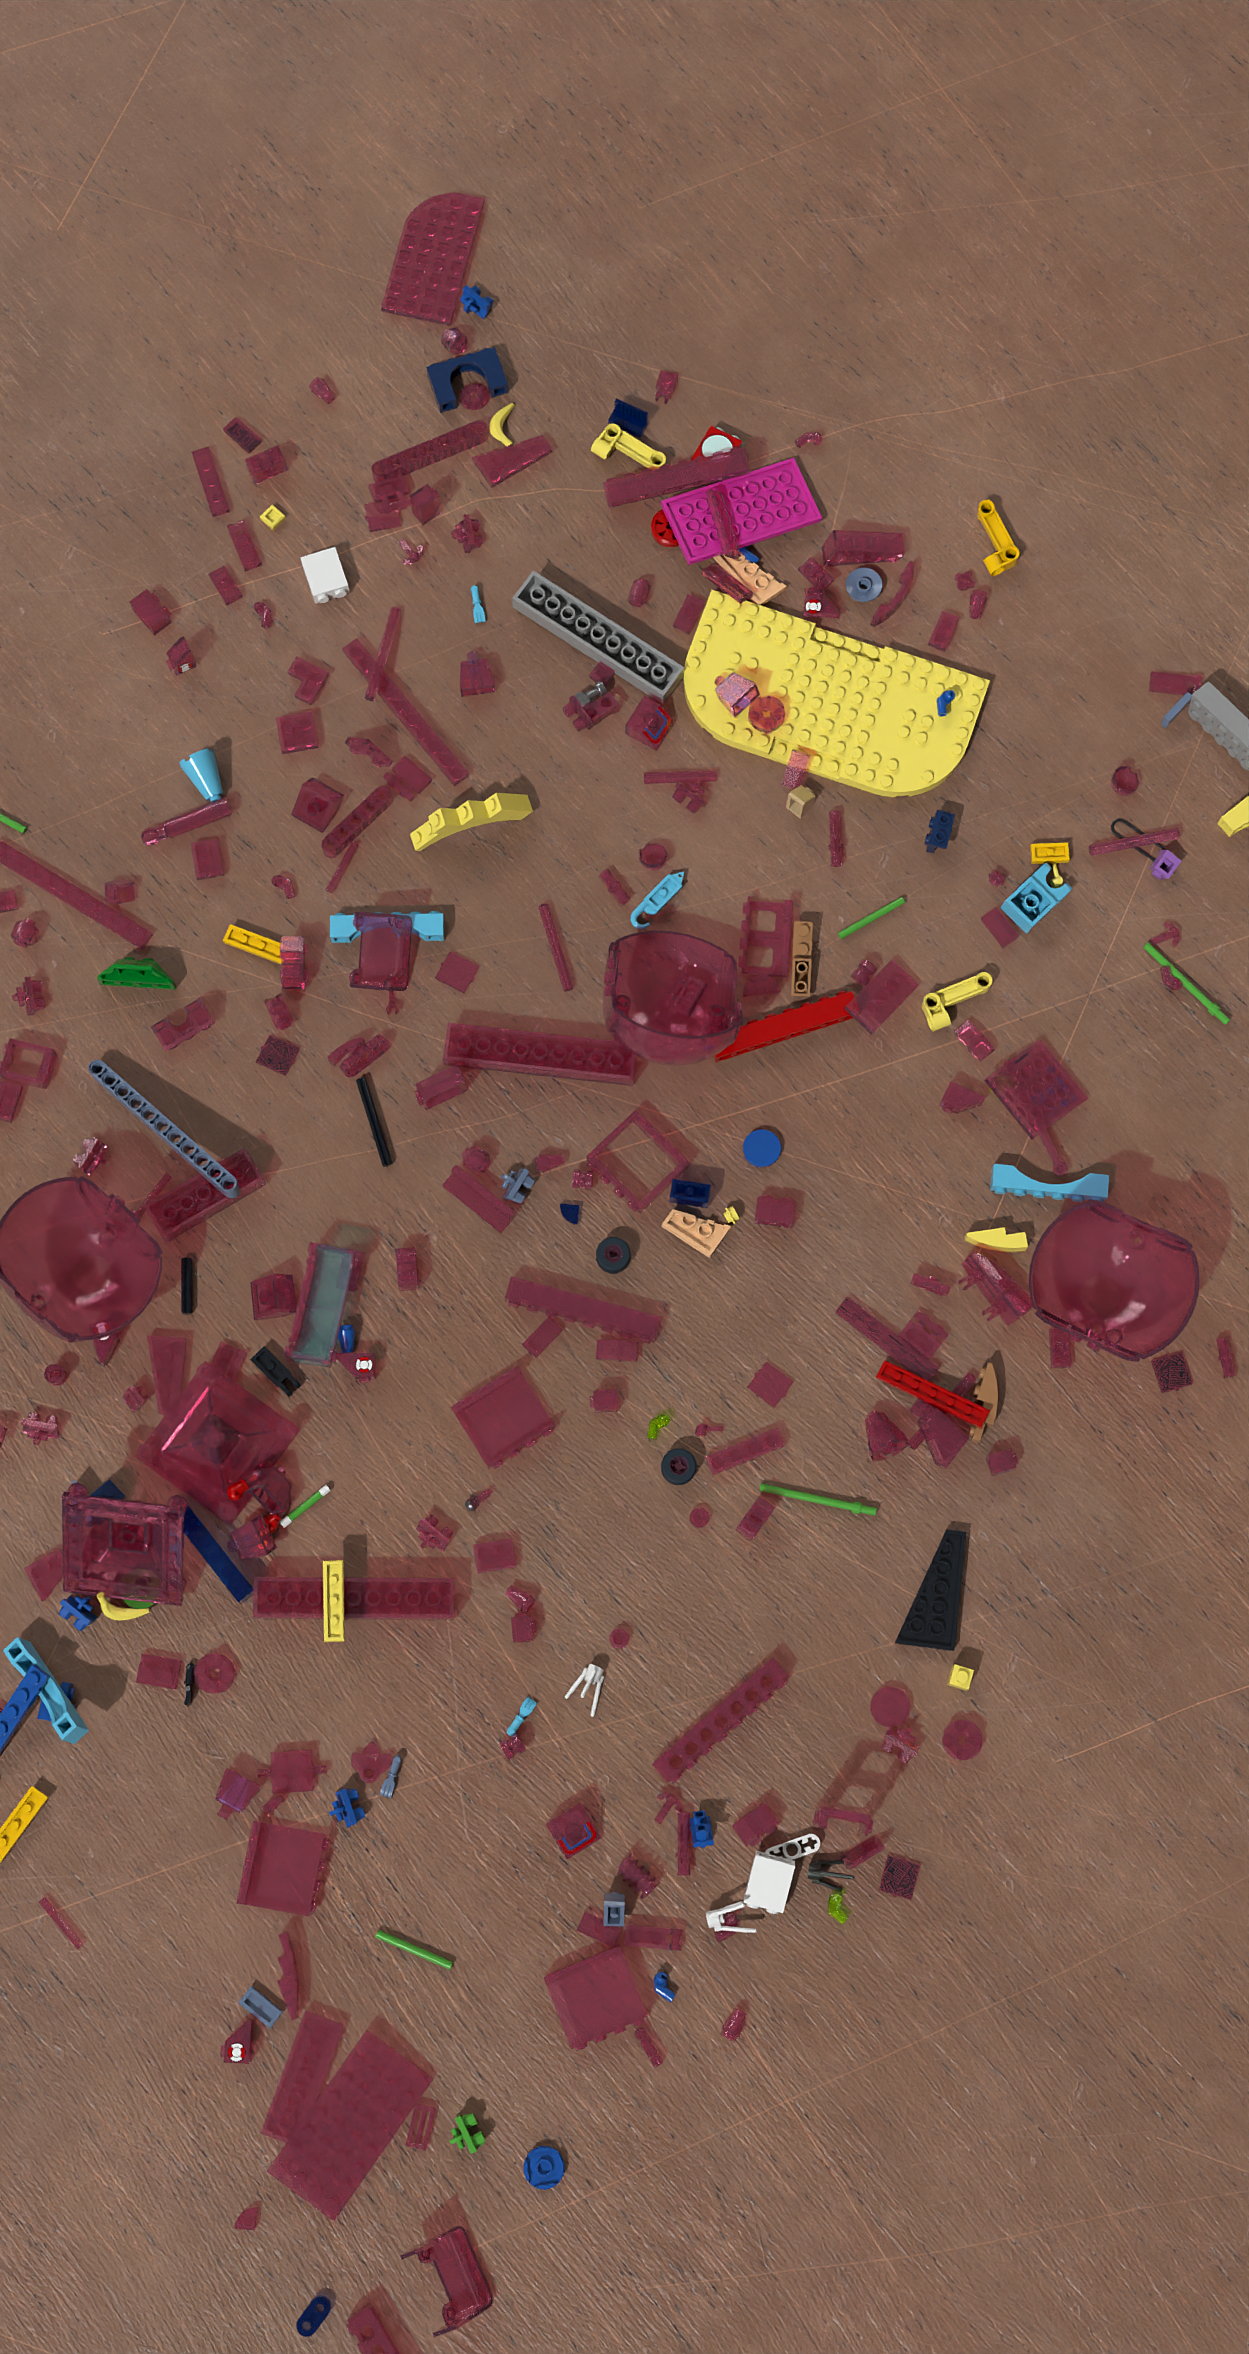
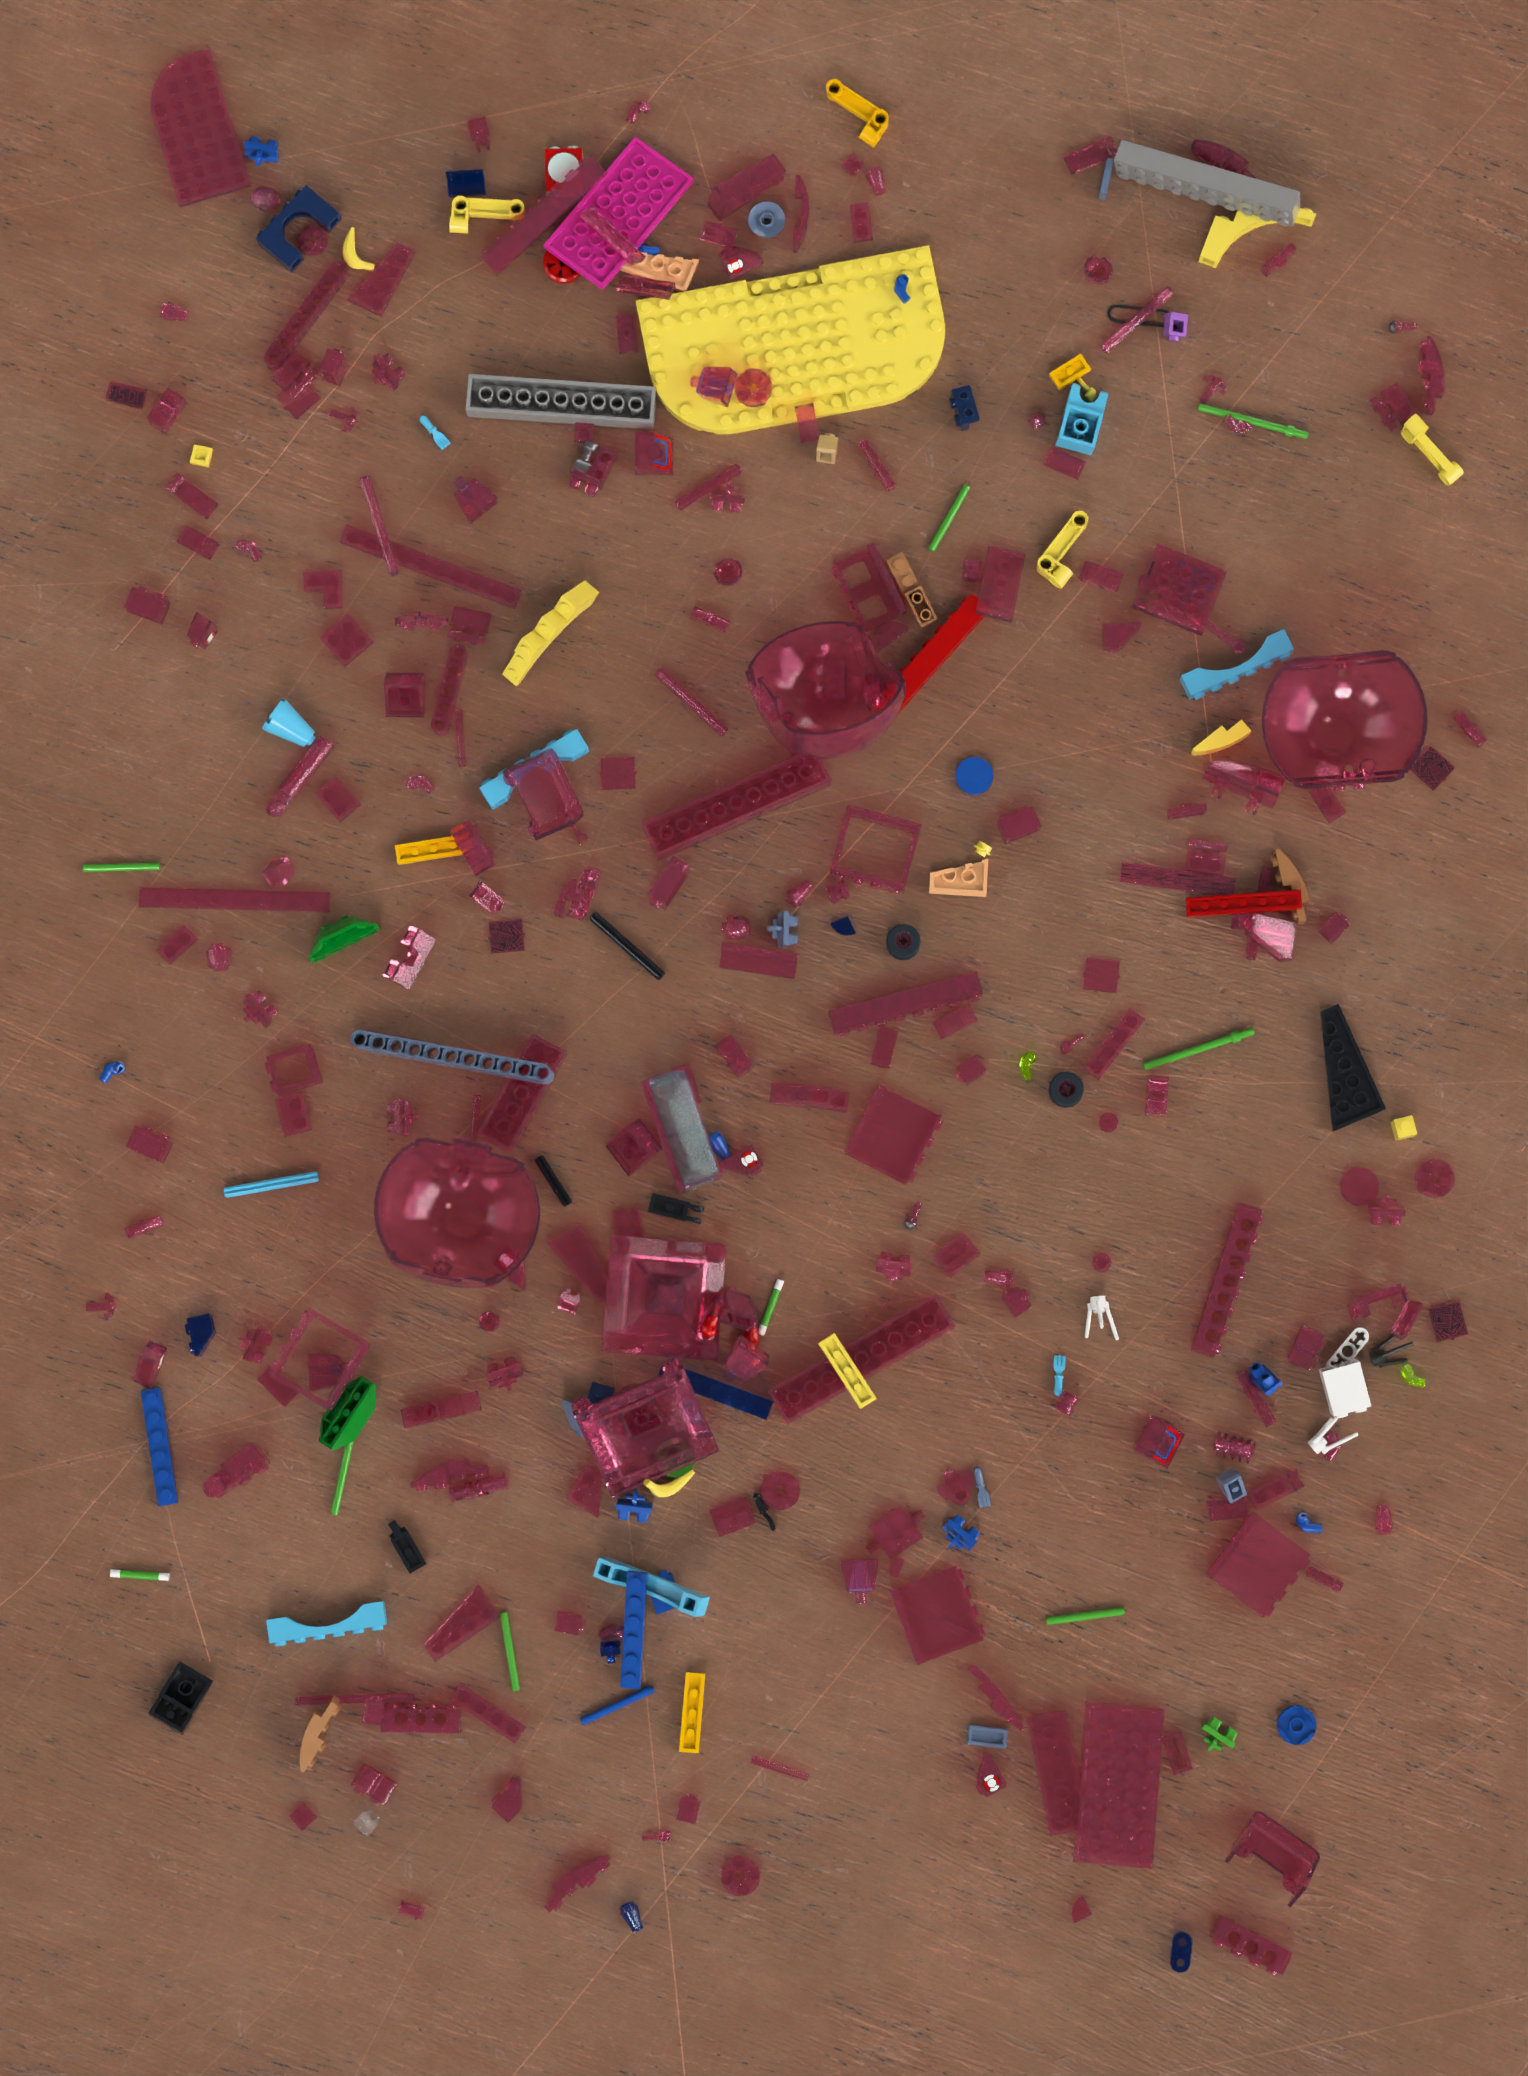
camera: 25 degrees left, 5 degrees up
(210, 482) = (124, 454): clear pink tile -> none
(325, 575) = (283, 483): white brick -> none
(450, 1341) = (809, 1096): none -> clear pink slope
(639, 592) = (572, 339): clear pink brick -> none
(658, 898) = (754, 607): medium azure plate -> none
(671, 1799) = (1224, 1368): clear pink piece -> none
(689, 1193) = (937, 851): clear blue brick -> none
(883, 1436) = (1223, 963): clear pink cone -> none

